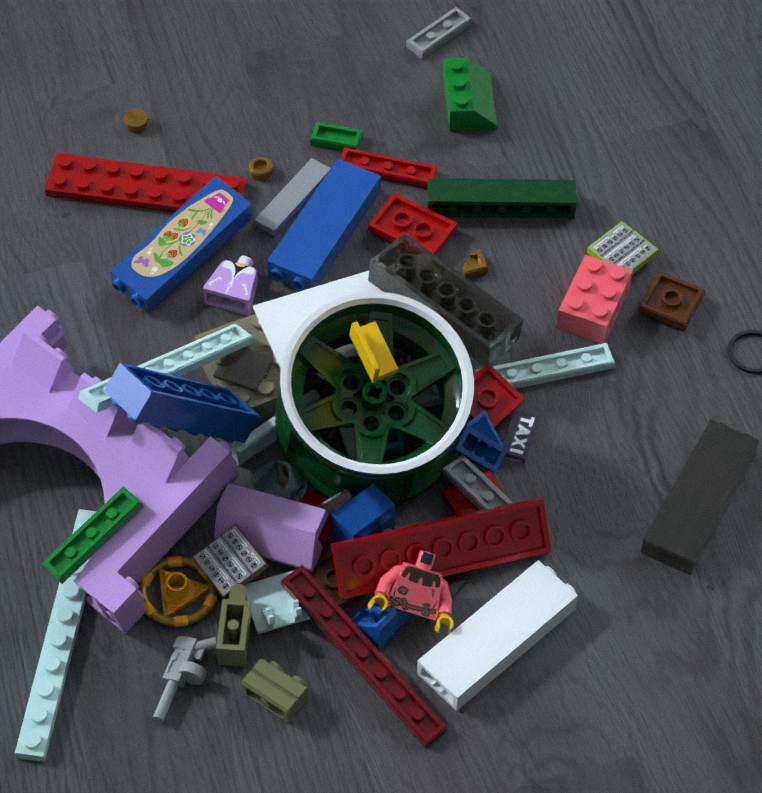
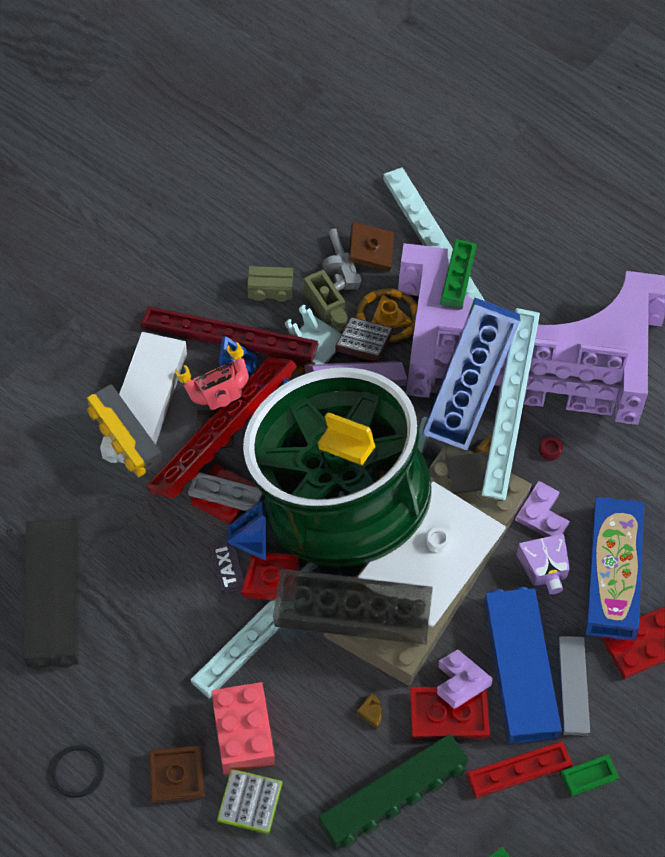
camera: 145 degrees right, 5 degrees up
(133, 671) = (371, 246): none -> reddish brown plate
(199, 318) = (537, 514): none -> lavender plate
(260, 168) = (624, 698): pearl gold tile -> none
(383, 229) = (465, 681): none -> lavender plate
(546, 585) = (124, 430): none -> piece

